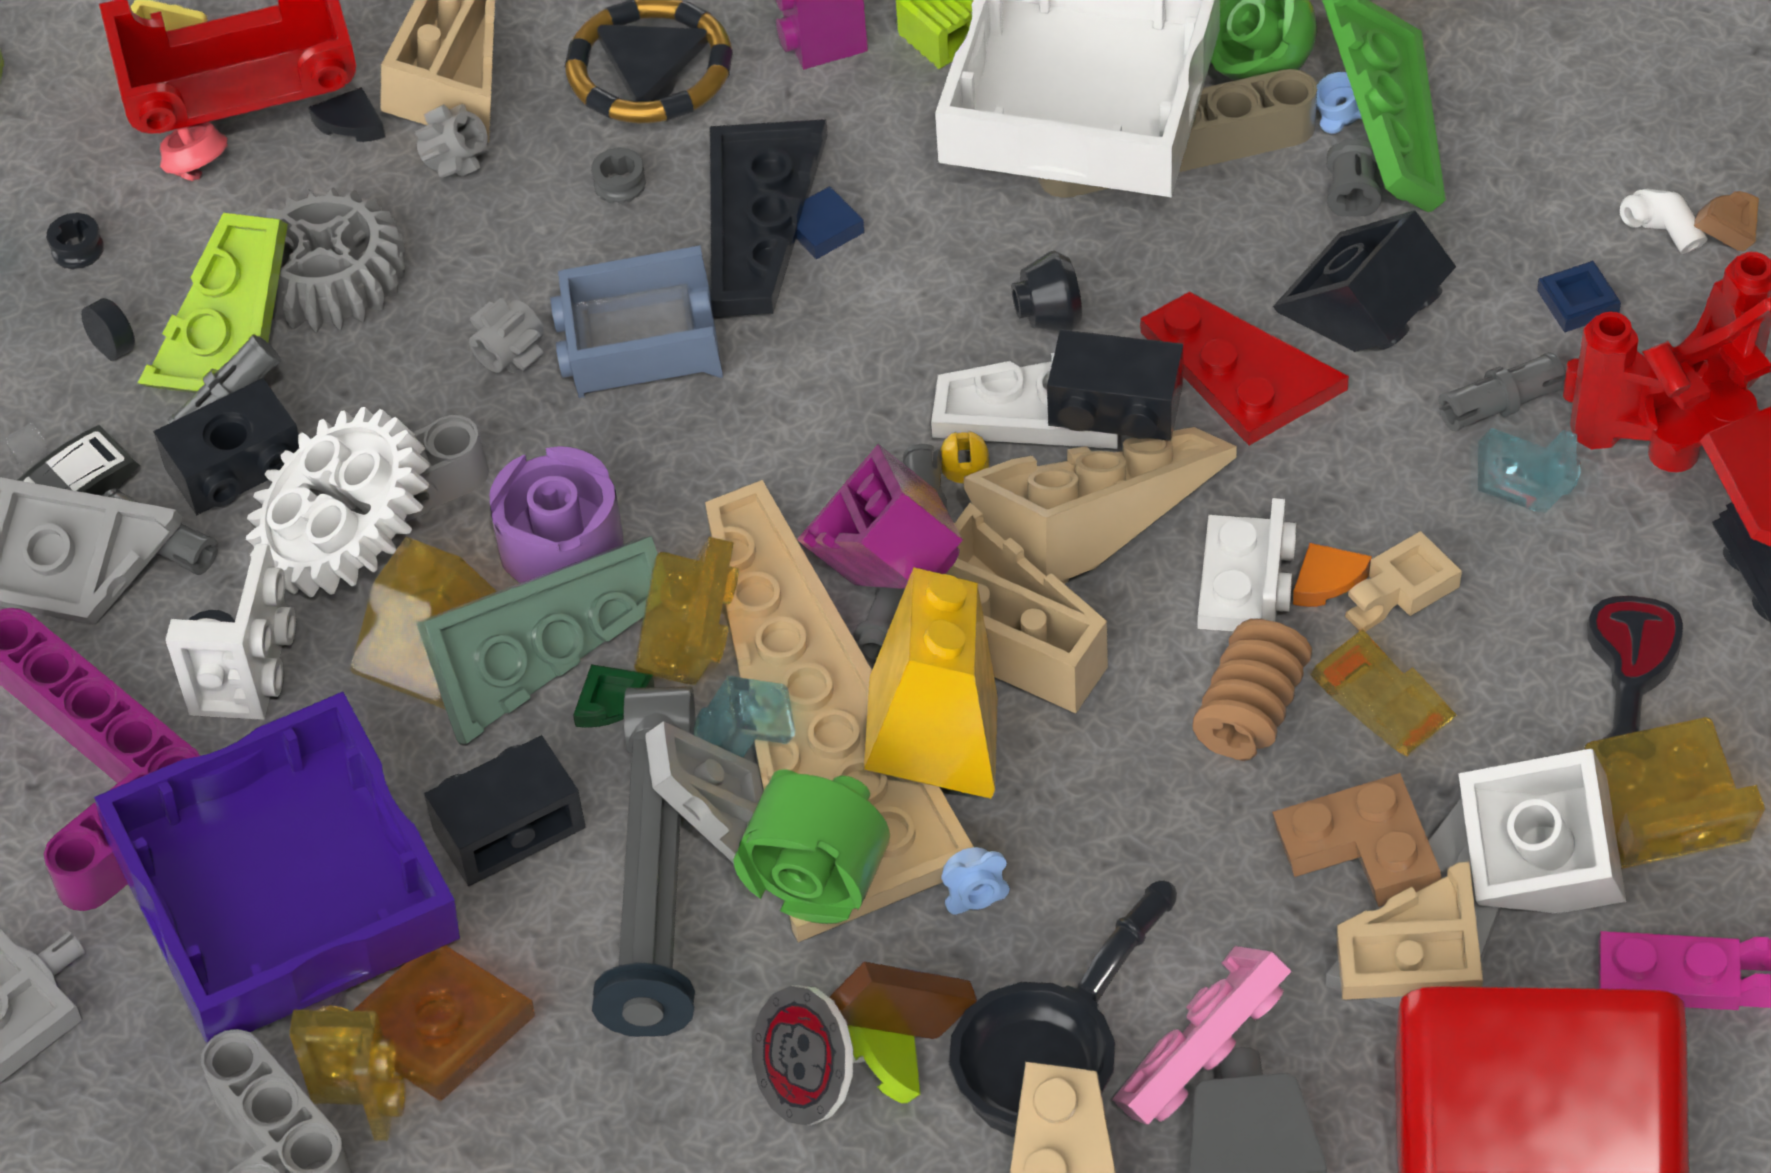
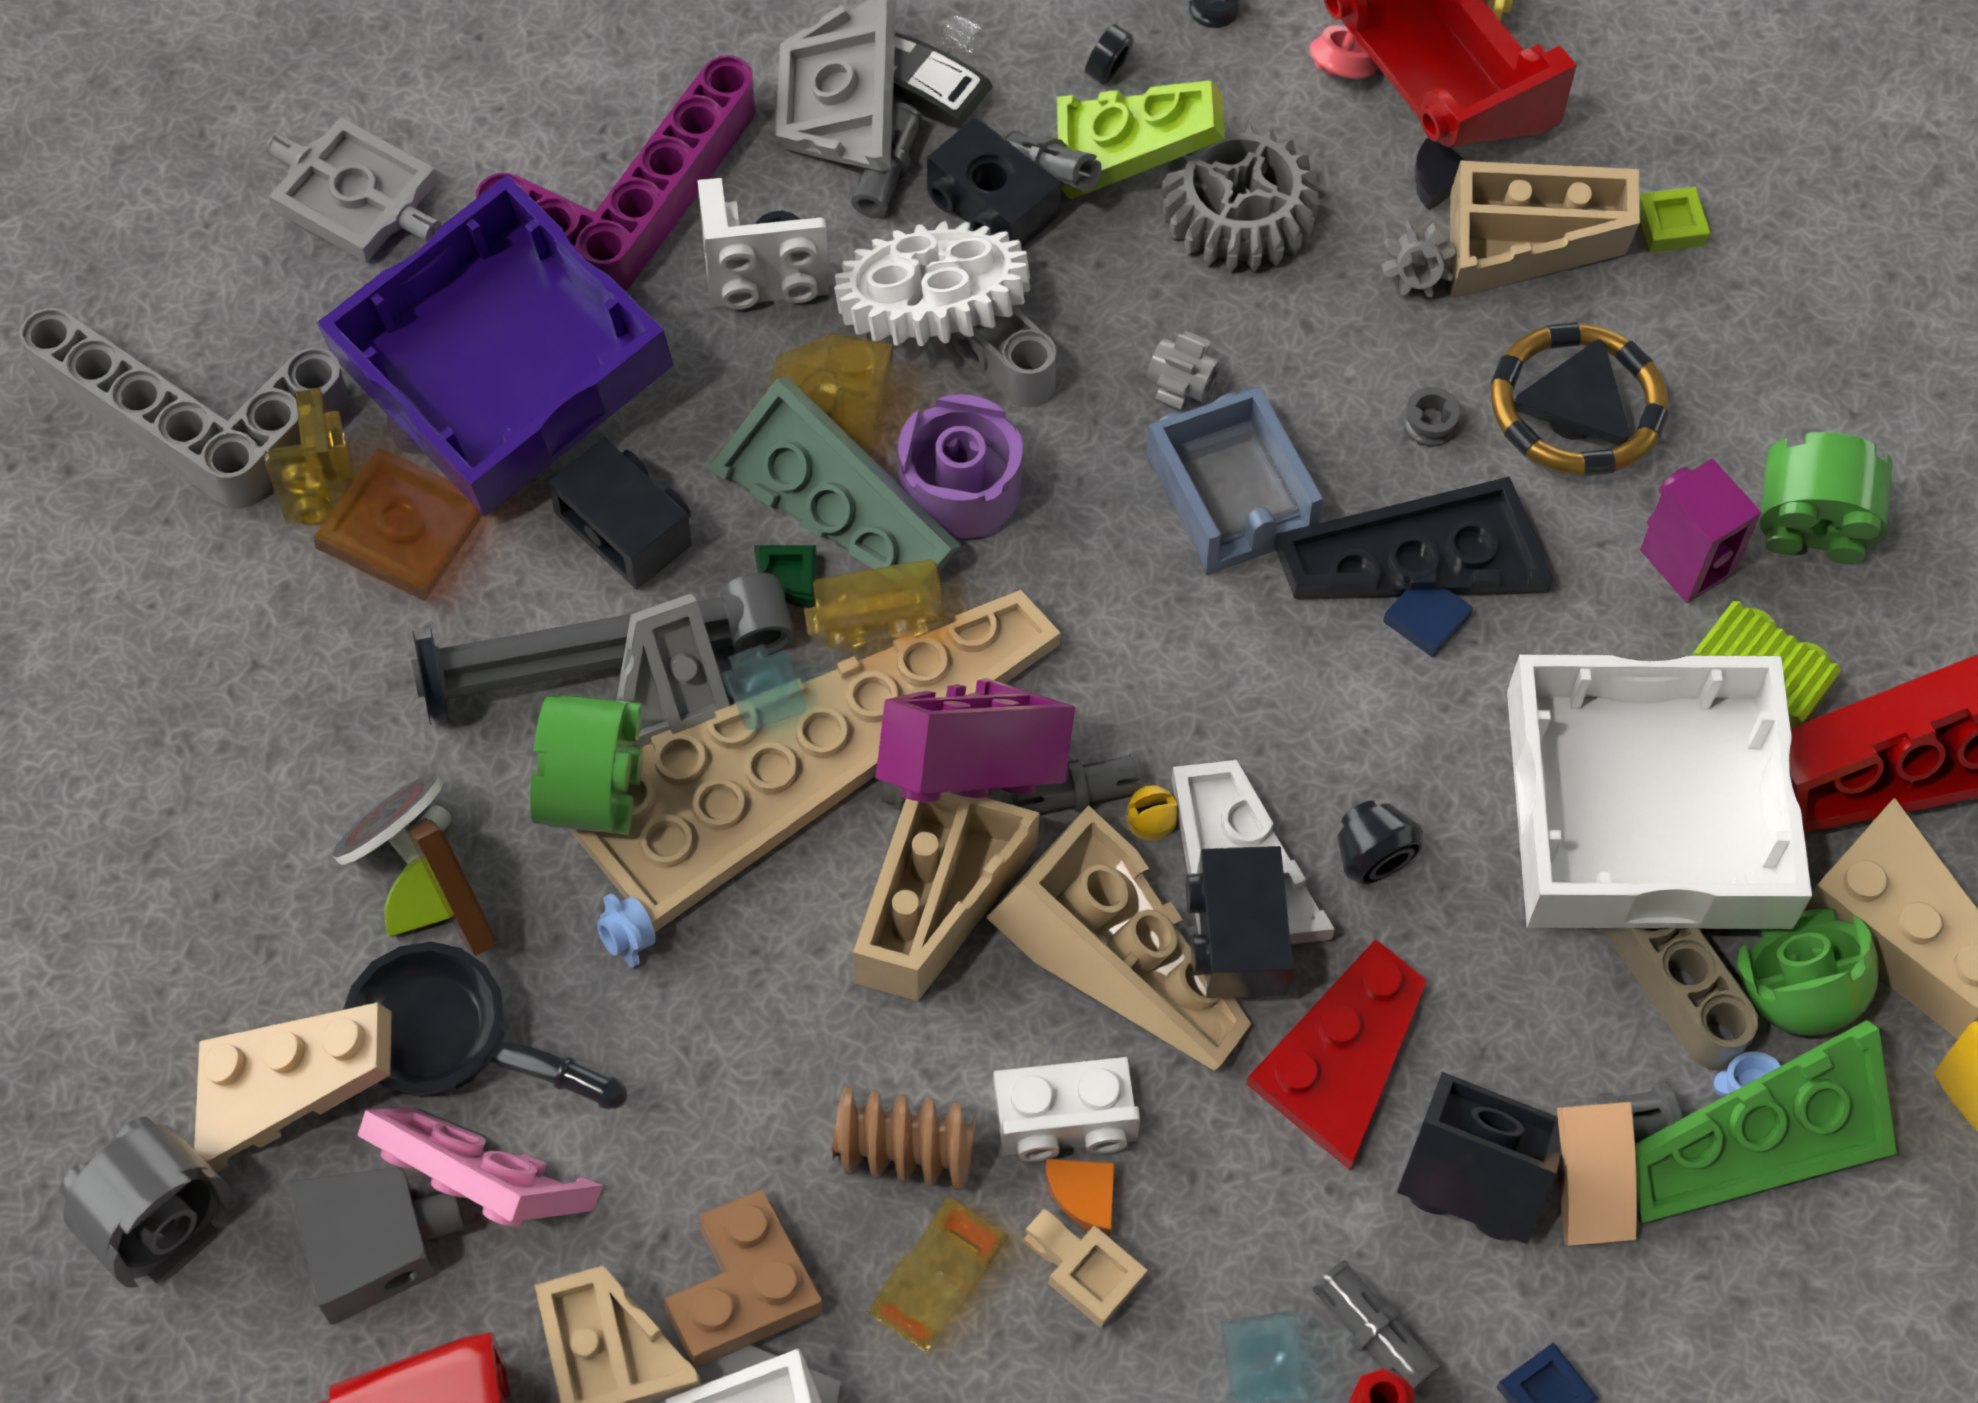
camera: 70 degrees right, 10 degrees up
(935, 690) = (797, 838): yellow slope -> none
(1390, 189) = (1598, 1173): none -> light nougat slope

